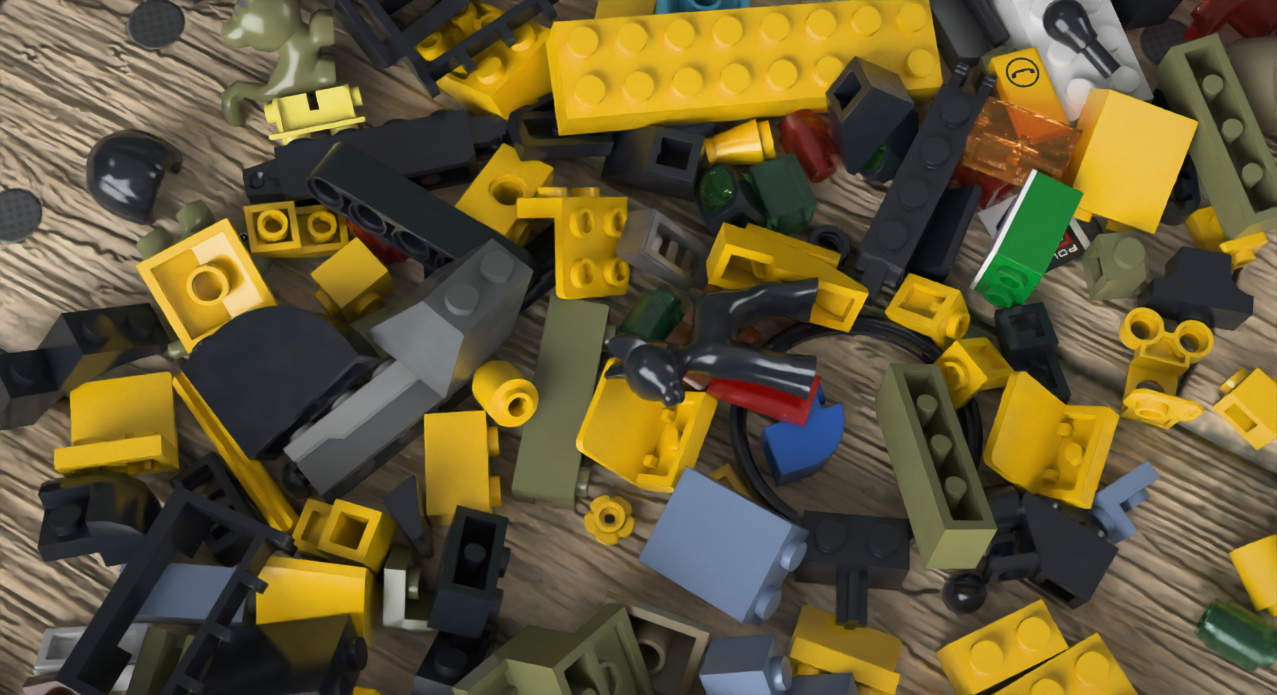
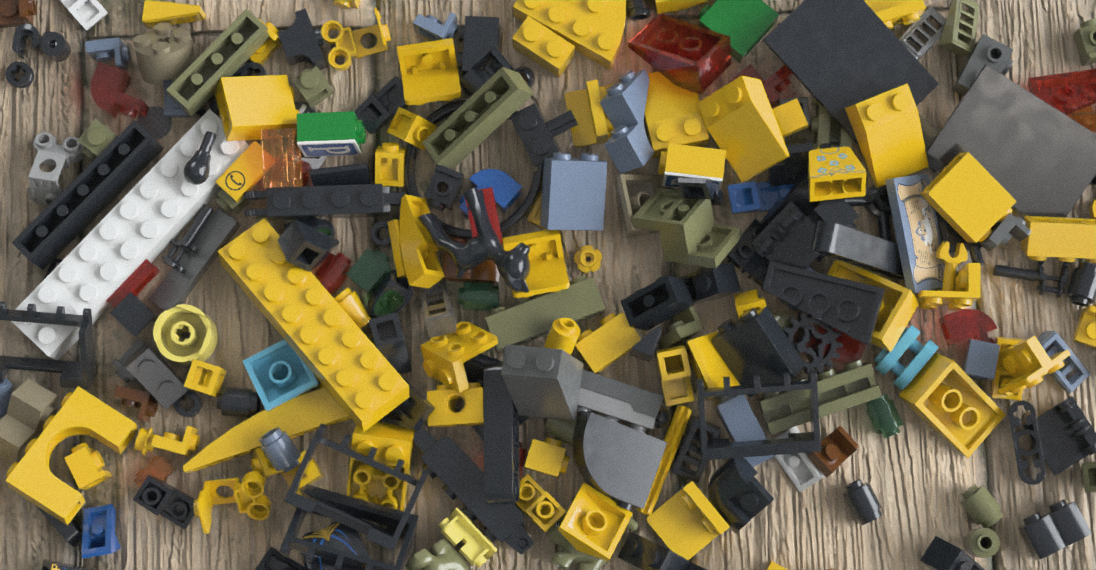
camera: 115 degrees left, 10 degrees up
(848, 383) = (452, 179): none -> black brick

